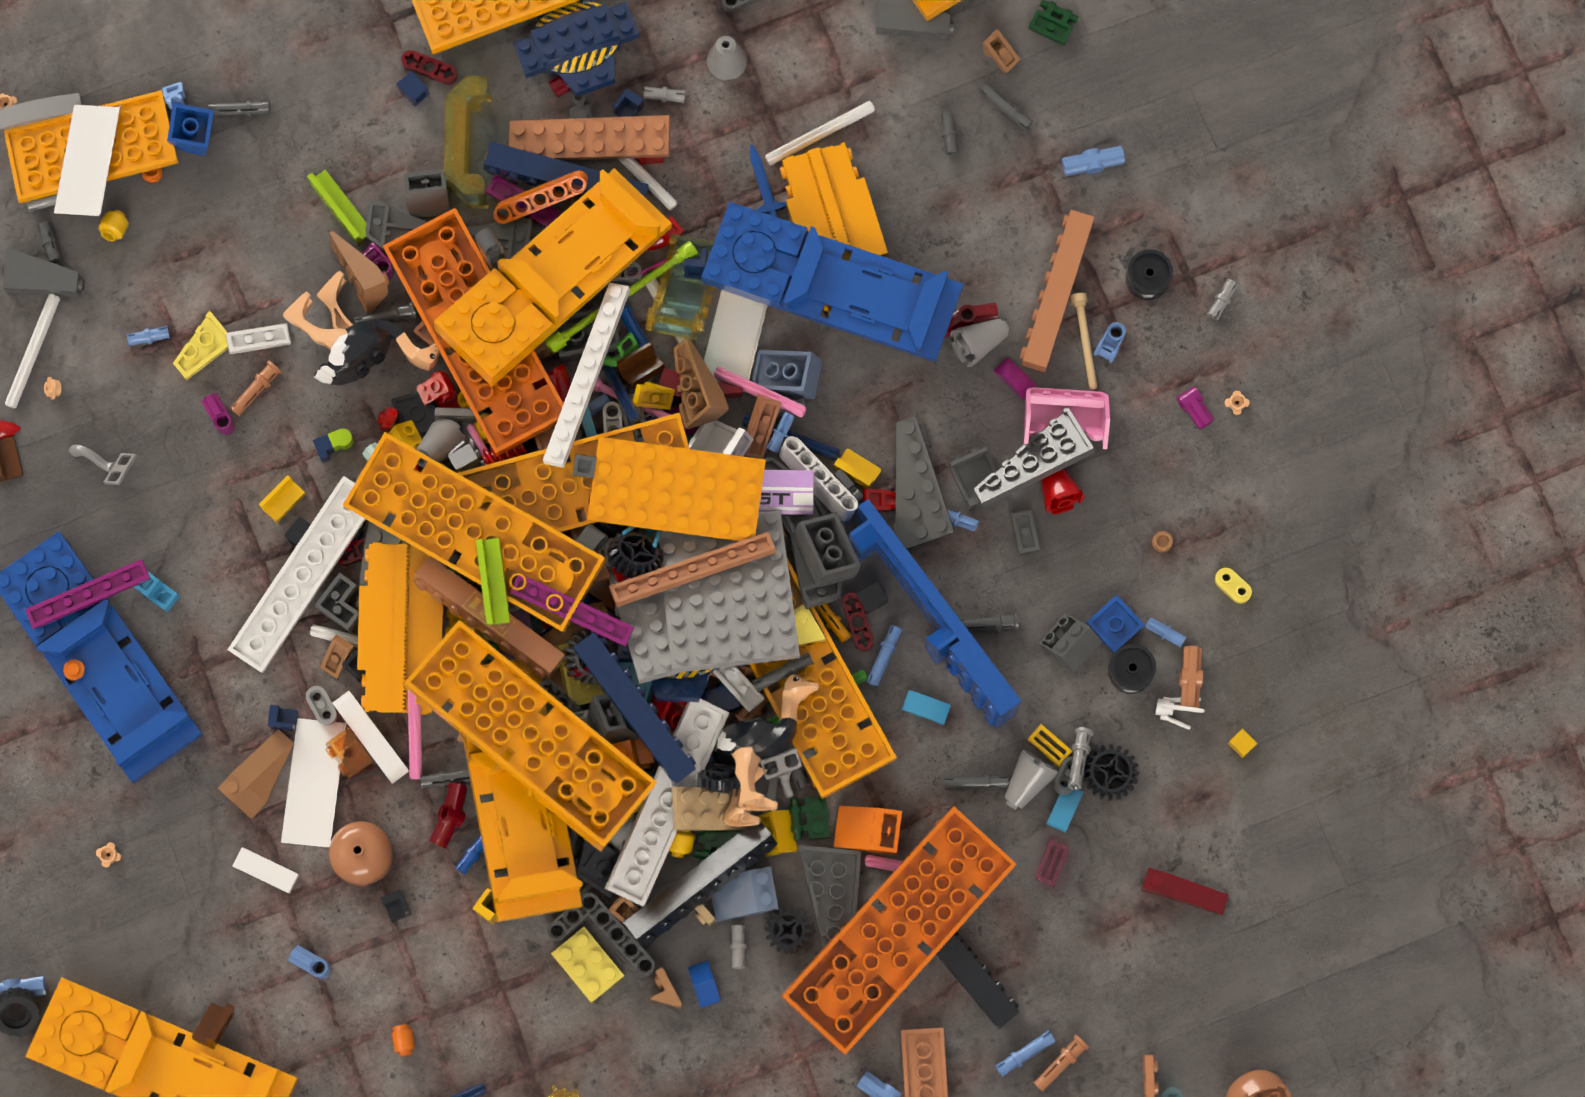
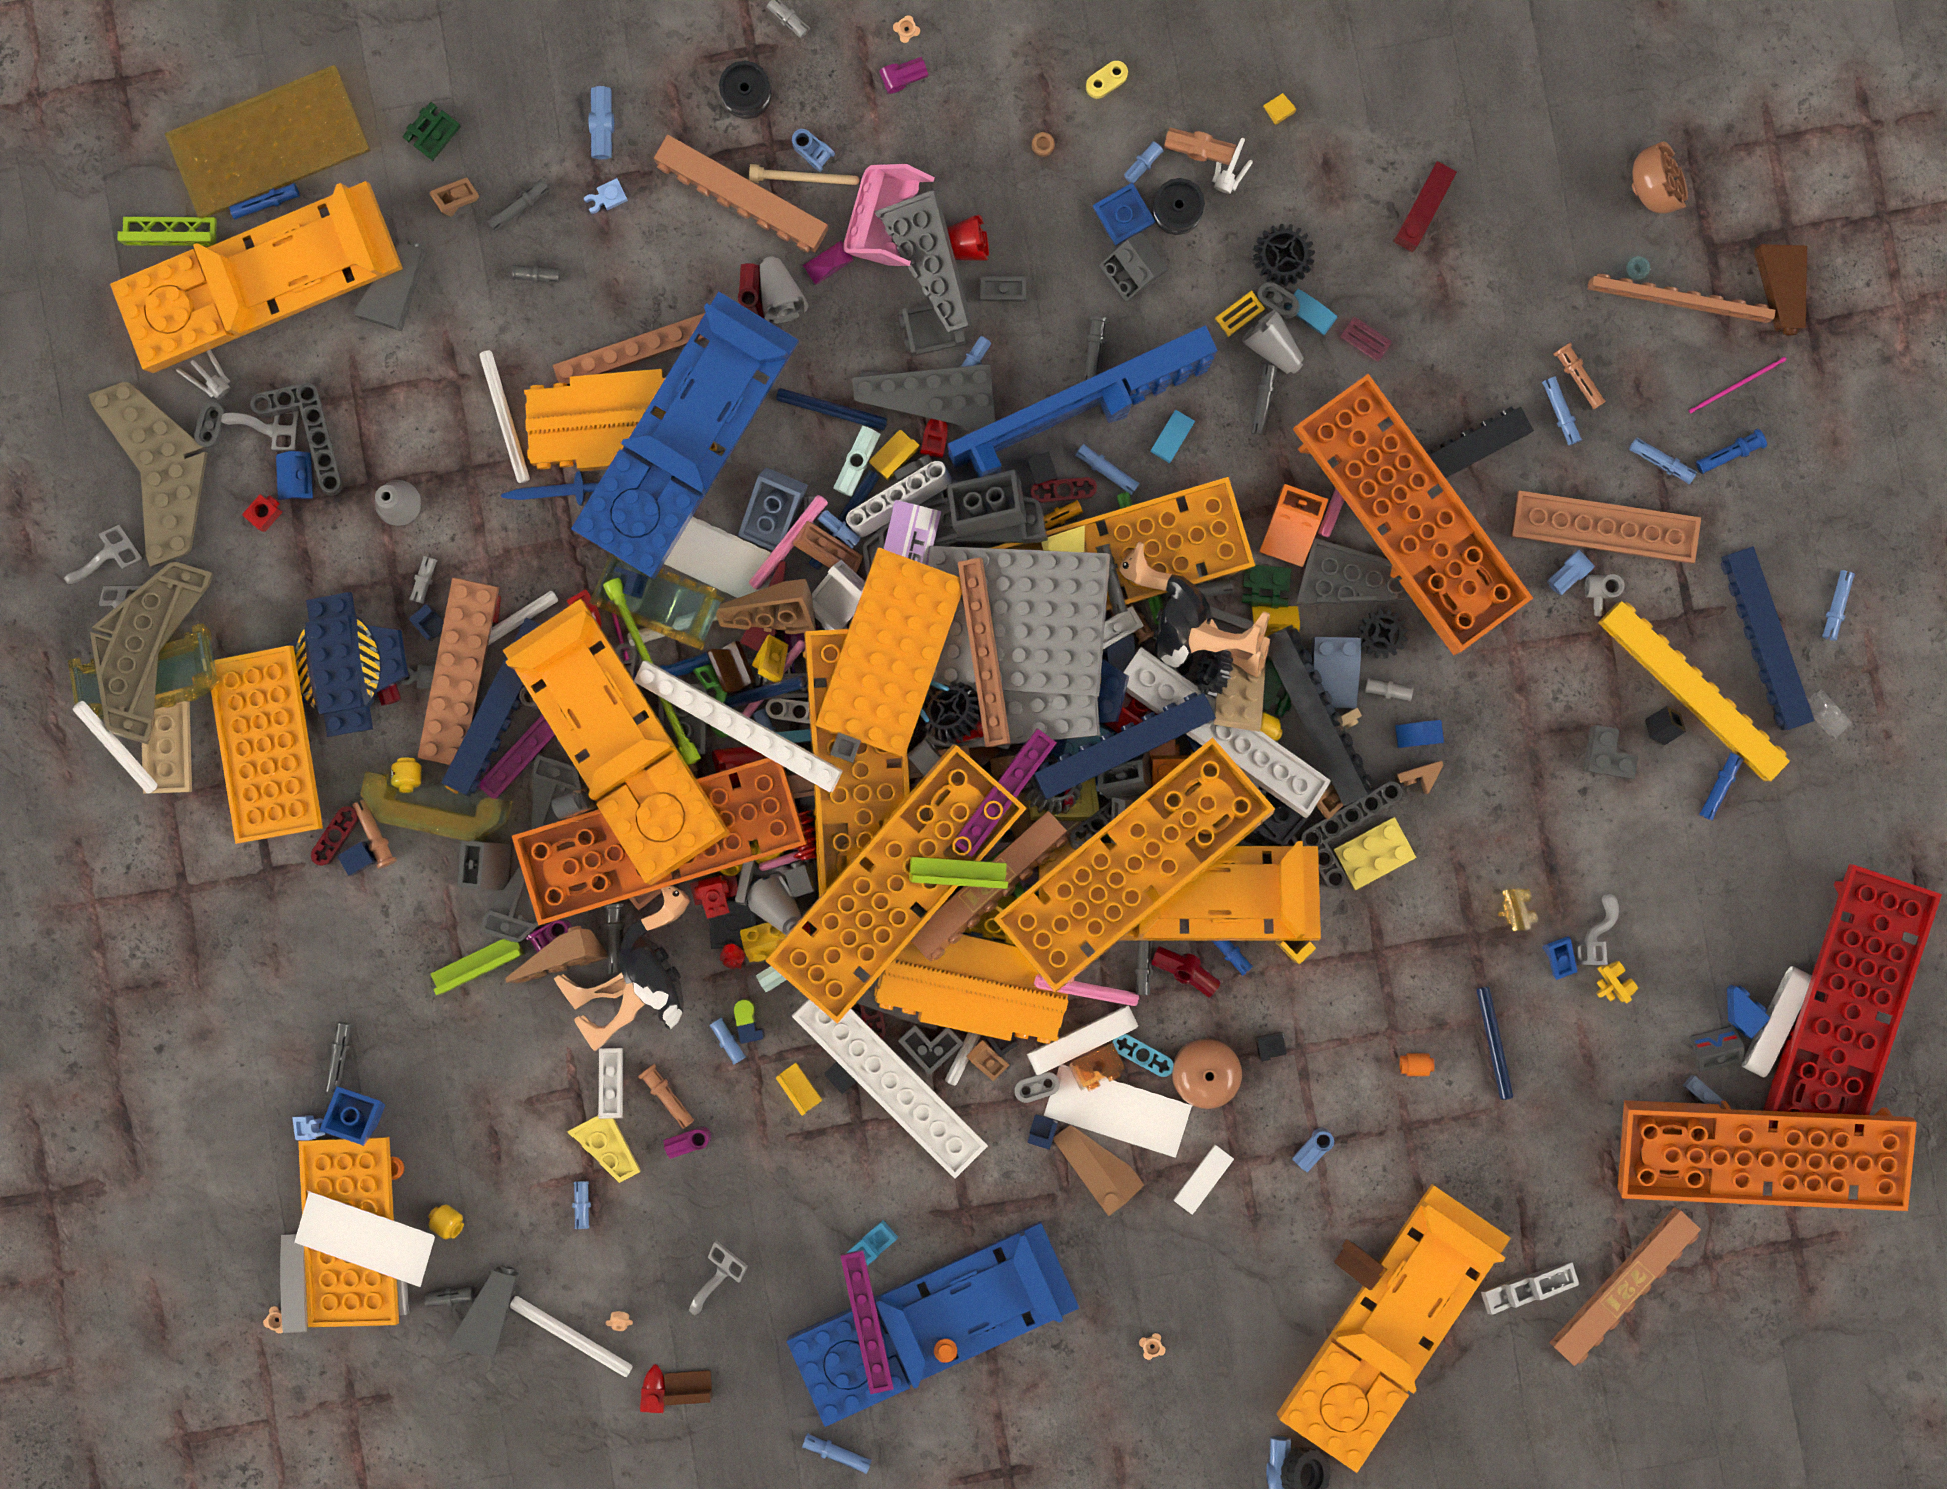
camera: 80 degrees left, 10 degrees up
(313, 430) = (727, 1041): none -> medium blue pin
(377, 780) = (1155, 1068): none -> medium azure beam
(429, 103) = (378, 844): none -> nougat pin
(492, 114) = (406, 774): none -> yellow head
(547, 190) = (510, 731): orange beam -> none
(783, 771) = (1220, 601): light grey piece -> none
(858, 439) = (862, 447): none -> light aqua piece
(886, 406) = (831, 409): none -> dark blue axle
(897, 221) = (629, 350): none -> nougat plate
(1031, 181) = (609, 194): none -> light blue plate
(1081, 750) = (1254, 280): light grey pin -> none

